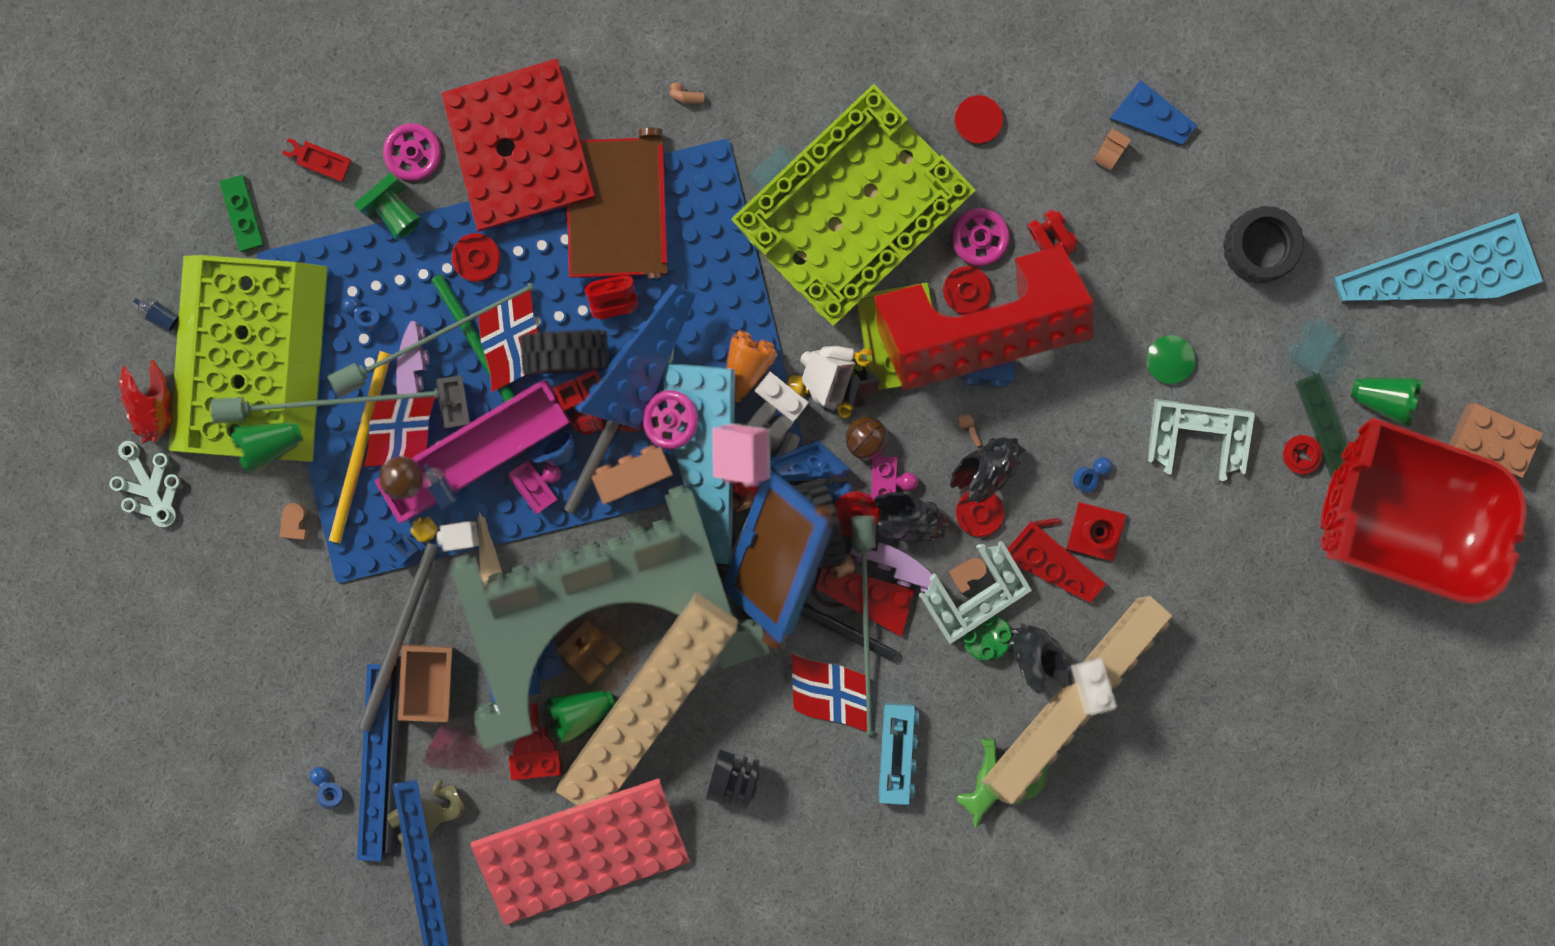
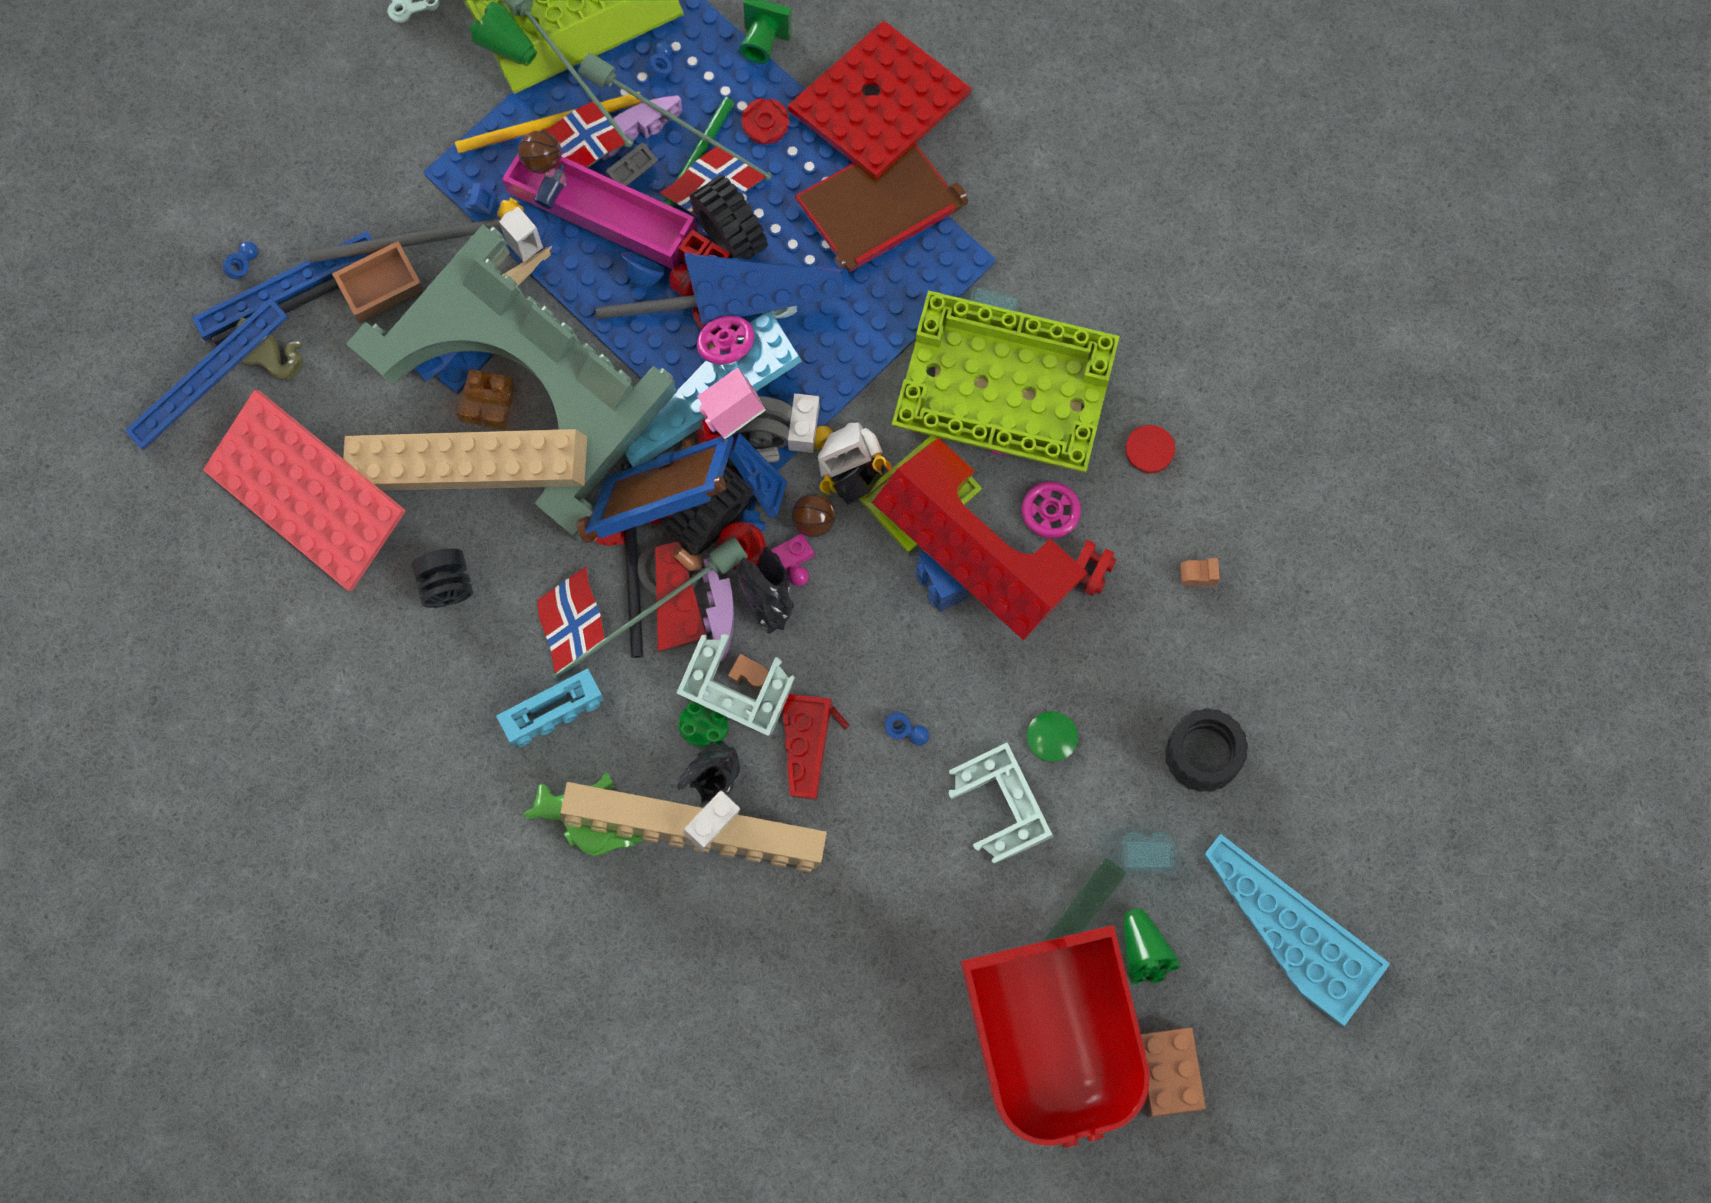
camera: 60 degrees right, 15 degrees down
(292, 521) = (454, 108): nougat leg -> none
(394, 162) = (829, 44): dark pink plate -> none
(442, 743) = (332, 324): clear pink slope -> none
(533, 486) = (600, 272): dark pink plate -> none
(535, 754) = (370, 403): red brick -> none
(577, 712) = (422, 414): green cone -> none
(612, 297) = (800, 239): red brick -> none
(632, 474) = (659, 339): nougat piece -> none
(685, 97) = (1007, 205): nougat arm -> none
(749, 360) = (814, 377): orange cone -> none
(967, 421) = (883, 596): nougat hand -> none
(970, 515) = (810, 661): red tile -> none
(971, 295) = (1010, 530): red tile -> none
(988, 468) = (852, 632): black head -> none
(1083, 536) = (857, 776): red plant -> none
(1153, 114) = (1255, 592): blue wing -> none
(1312, 451) = (1052, 896): red gear -> none

